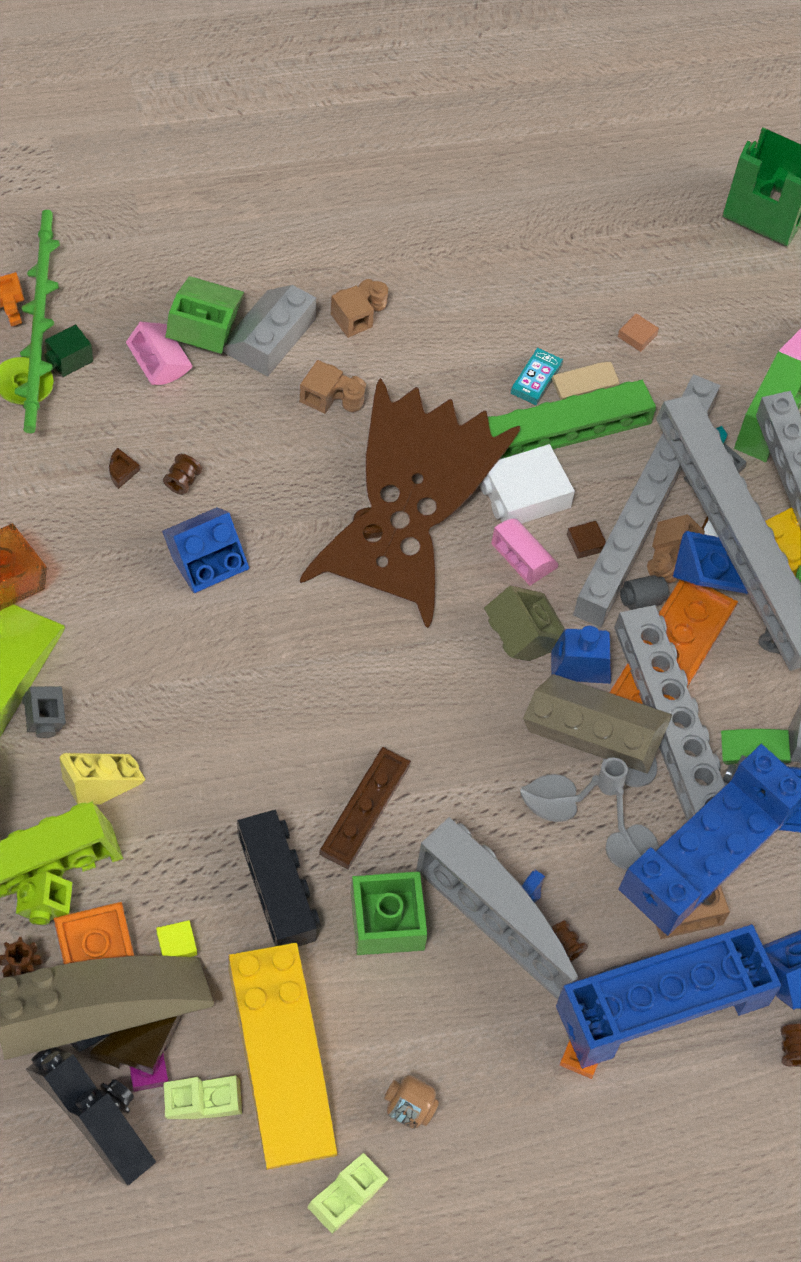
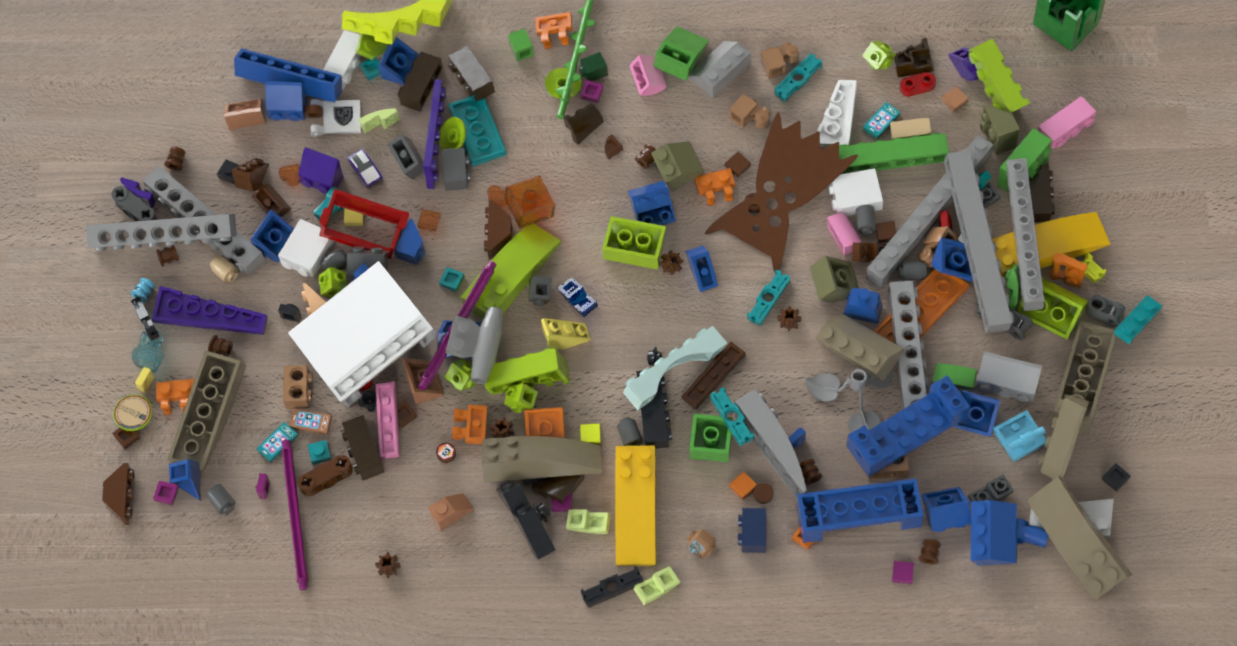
camera: 25 degrees right, 5 degrees up
(68, 435) = (583, 122): none -> dark brown slope
(72, 387) = (591, 91): none -> magenta plate
(109, 713) = (577, 297): none -> clear blue slope
(189, 610) = (634, 242): none -> lime slope
(235, 477) = (677, 163): none -> olive slope
(245, 927) = (629, 432): none -> dark grey brick
(251, 1227) = (600, 593): none -> black piece
(257, 633) = (667, 266): none -> reddish brown gear
(262, 793) = (653, 356): none -> black plate
(262, 844) = (702, 348): none -> light aqua arch
(300, 499) = (715, 182): none -> orange plate
(309, 635) = (702, 268): none -> blue slope
(330, 468) = (738, 164): none -> reddish brown tile
(382, 342) = (789, 85): none -> teal piece
(420, 684) = (763, 308): none -> teal piece
(433, 888) = (738, 427): none -> teal piece
(457, 986) = (743, 485): none -> orange tile
(470, 695) = (792, 320): none -> reddish brown gear
(471, 373) = (839, 115): none -> white wing
(494, 994) = (763, 493): none -> reddish brown tile
(494, 1061) = (753, 530): none -> dark blue brick
(512, 281) = (879, 55): none -> lime brick
(552, 525) = (865, 220): none -> dark grey brick
(562, 284) = (914, 60): none -> dark brown slope
(566, 572) = (866, 251): none -> reddish brown slope
(580, 315) = (918, 84): none -> red plate
(645, 279) = (963, 64): none -> dark purple slope
(674, 506) = (945, 220): none -> red tile
(701, 290) = (997, 77): none -> lime wedge
(722, 360) = (999, 128): none -> olive slope
(760, 1089) = (903, 572): none -> magenta tile

